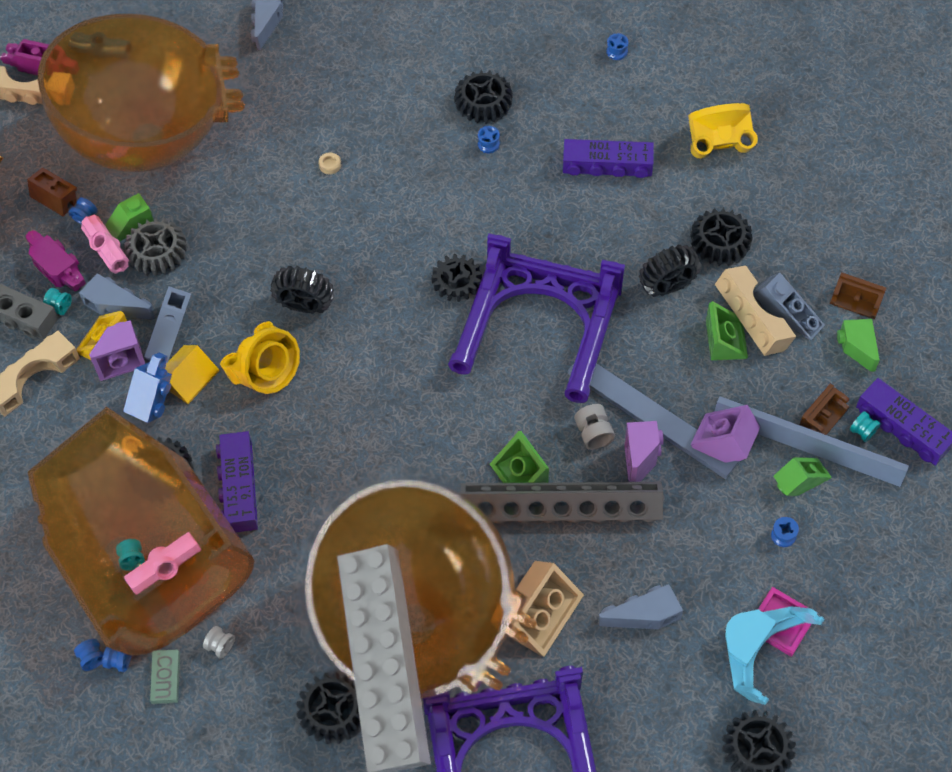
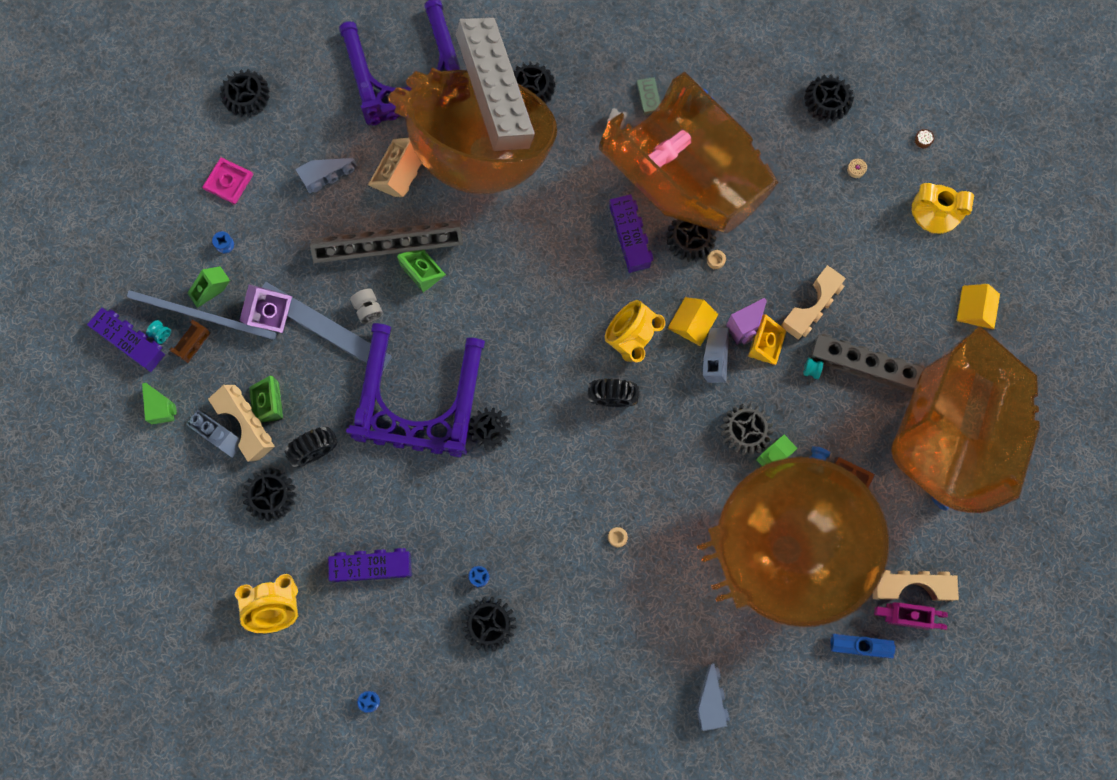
camera: 170 degrees right, 15 degrees up
(54, 262) = (827, 404): magenta hinge -> none
(104, 244) = (790, 424): bright pink piece -> none
(107, 297) = (768, 374): sand blue slope -> none
(130, 554) = (692, 161): teal wheel -> none
(149, 389) = (714, 288): hinge -> none
(641, 448) = (328, 284): medium lavender slope -> none
(747, 634) = (250, 161): medium azure piece -> none
(858, 295) = (156, 449): reddish brown hinge -> none

